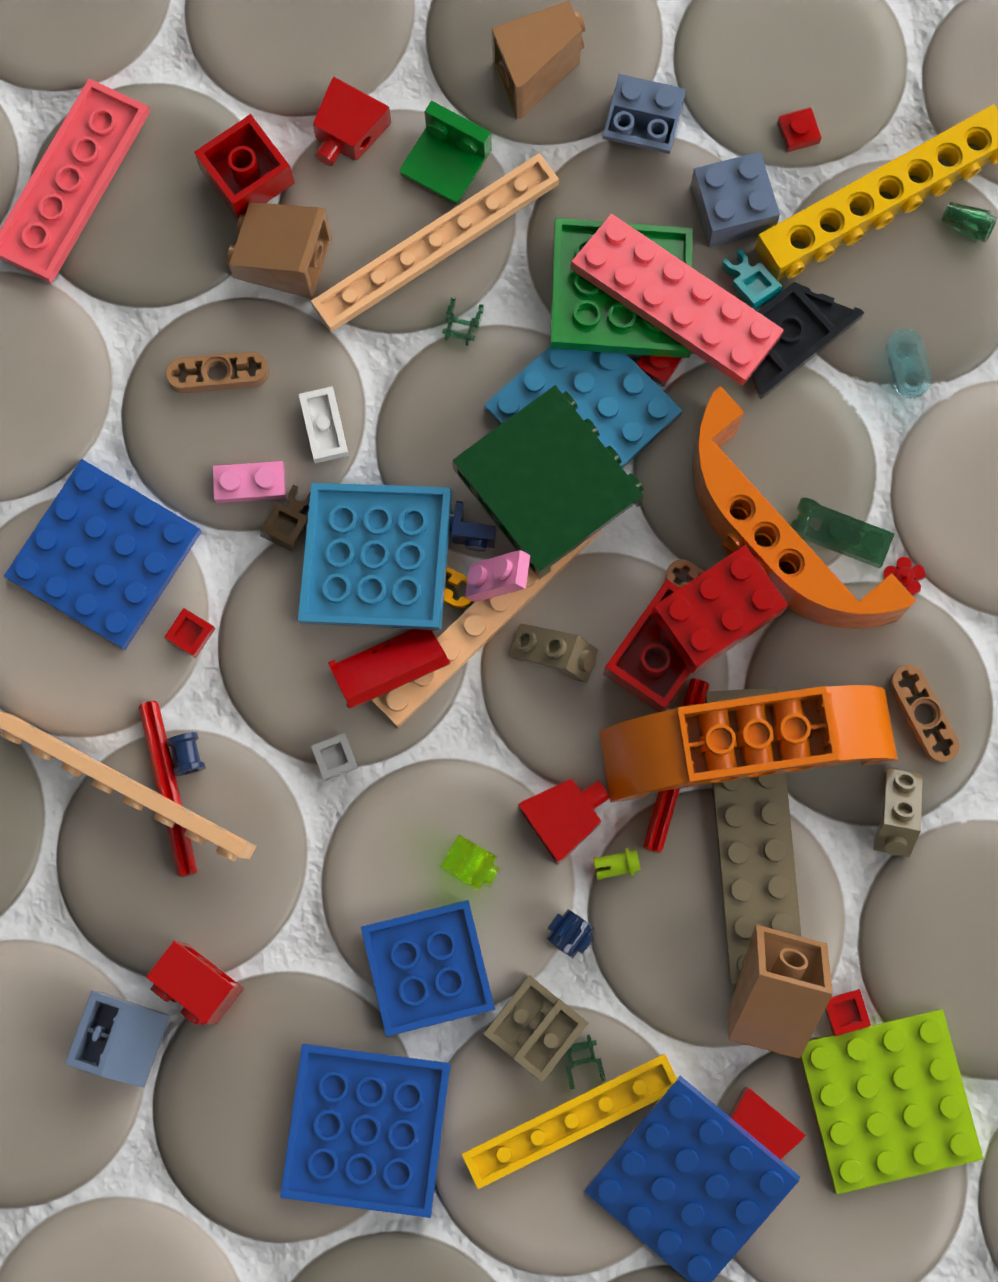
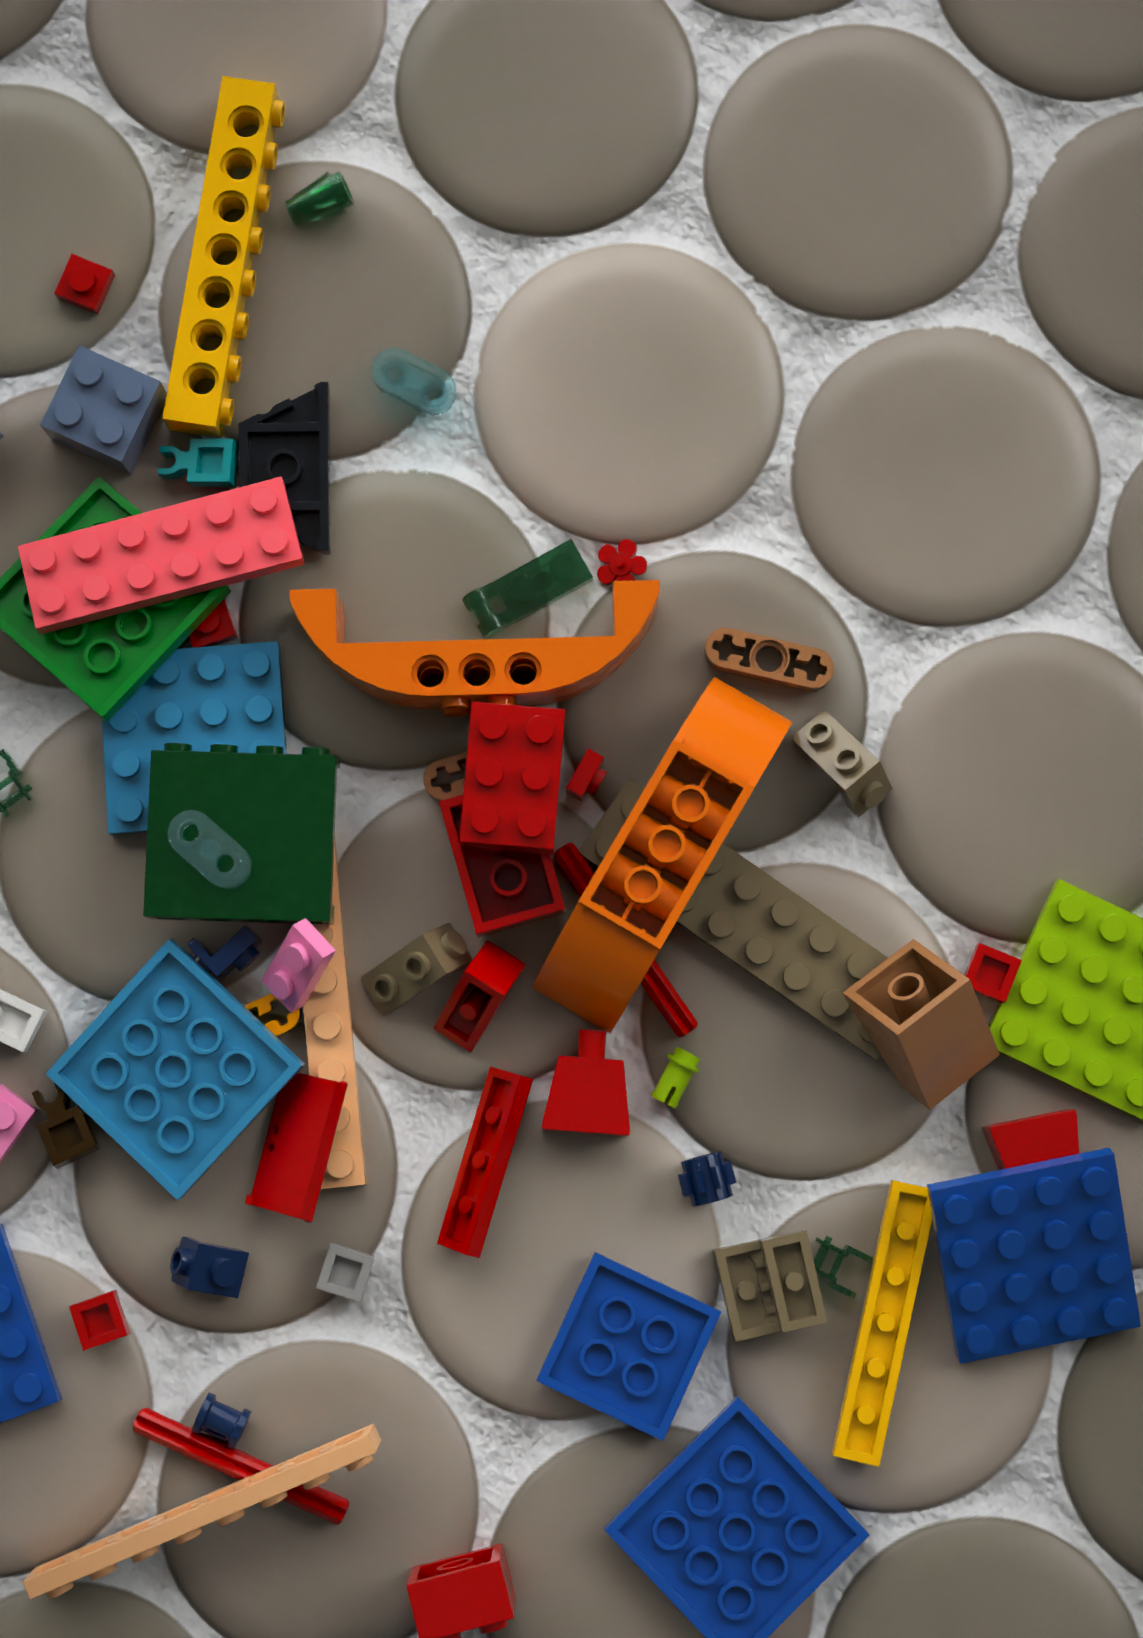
camera: 55 degrees left, 5 degrees up
(272, 672) = (208, 1267): none -> dark blue bracket
(469, 787) = (484, 1162): none -> red plate
(470, 863) = (561, 1221): clear neon green brick -> none
(524, 463) = (209, 848): none -> clear light blue plate
(568, 702) = (479, 995): none -> red slope
(757, 659) = (587, 776): none -> red plate

